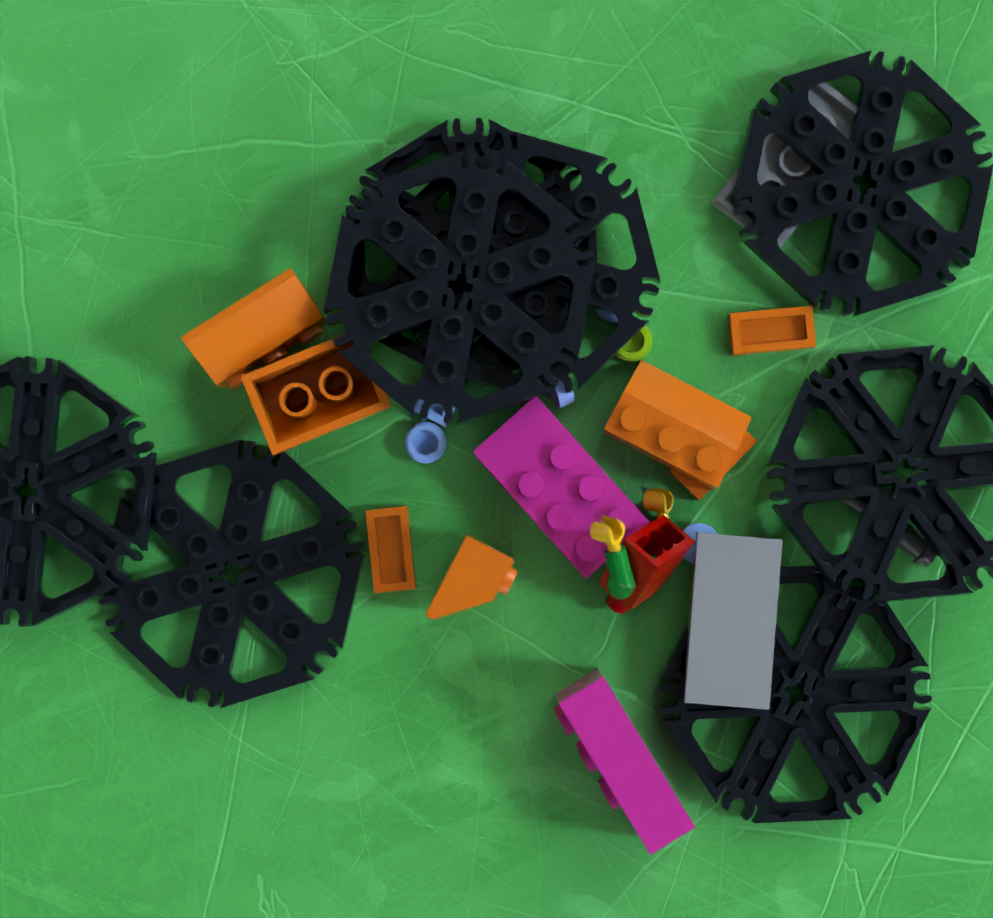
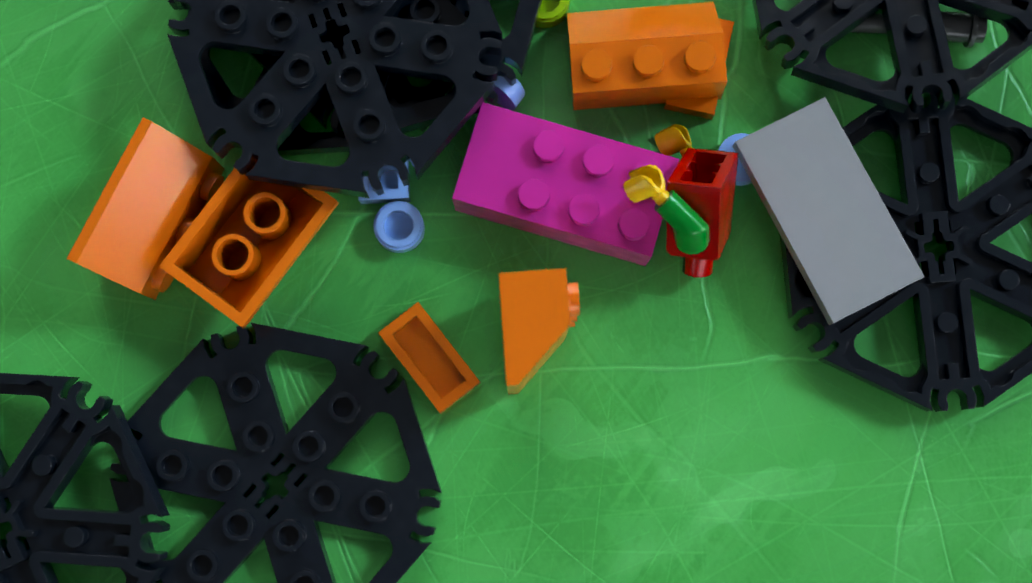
camera: 30 degrees left, 5 degrees down
(627, 766) = (811, 422): dark pink brick -> none

